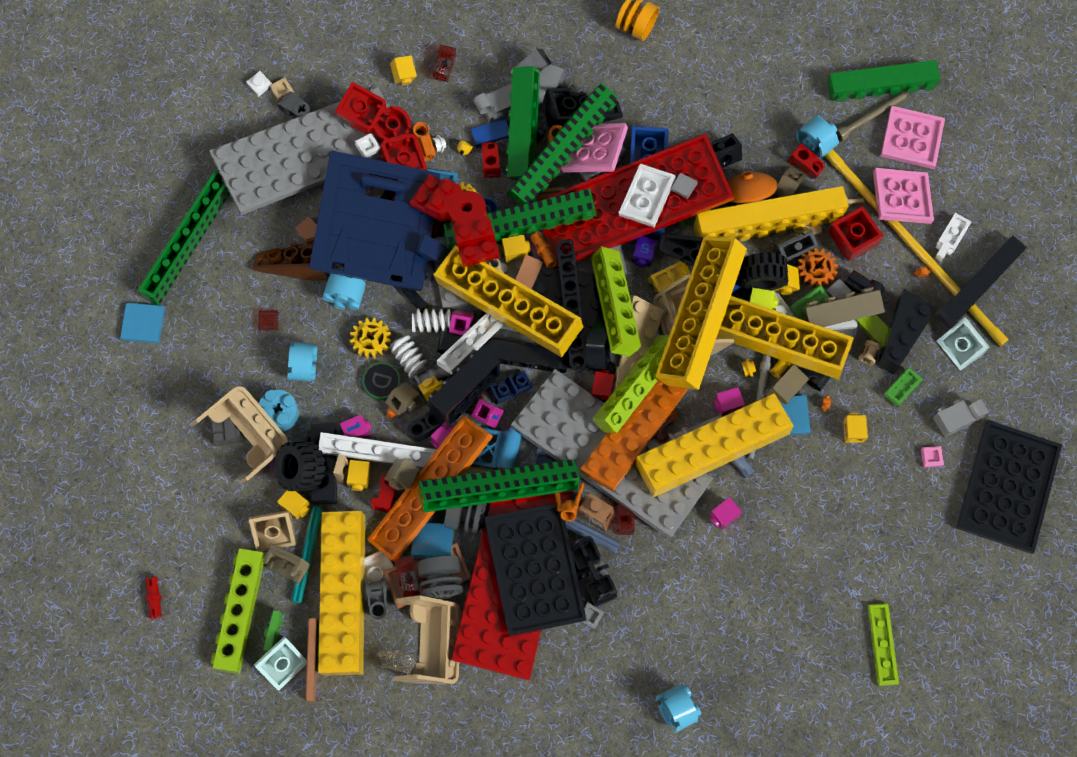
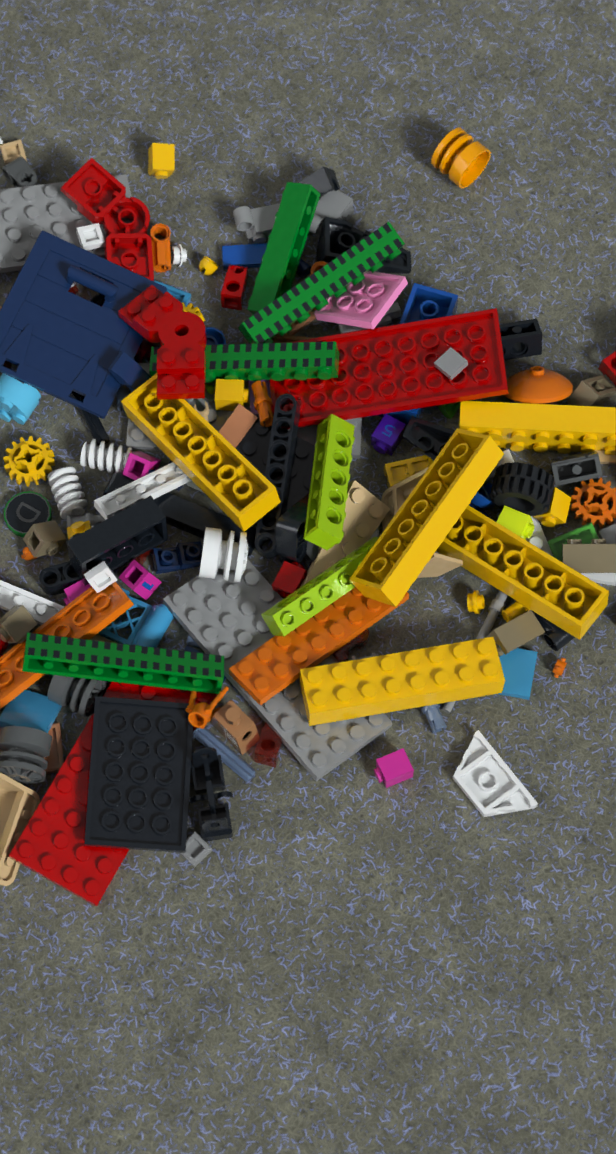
camera: 20 degrees right, 5 degrees down
(444, 63) = (213, 163): clear red leg -> none
(460, 420) = (100, 577): none -> white plate
(546, 379) = (223, 554): none -> white wheel
(647, 195) = (403, 365): white plate -> none
(678, 707) = (264, 983): medium azure brick -> none
(728, 401) = (437, 633): dark pink brick -> none
(799, 505) = (490, 781): none -> white wing
(855, 428) = (586, 705): yellow brick -> none
(883, 644) = (545, 975): lime tile -> none

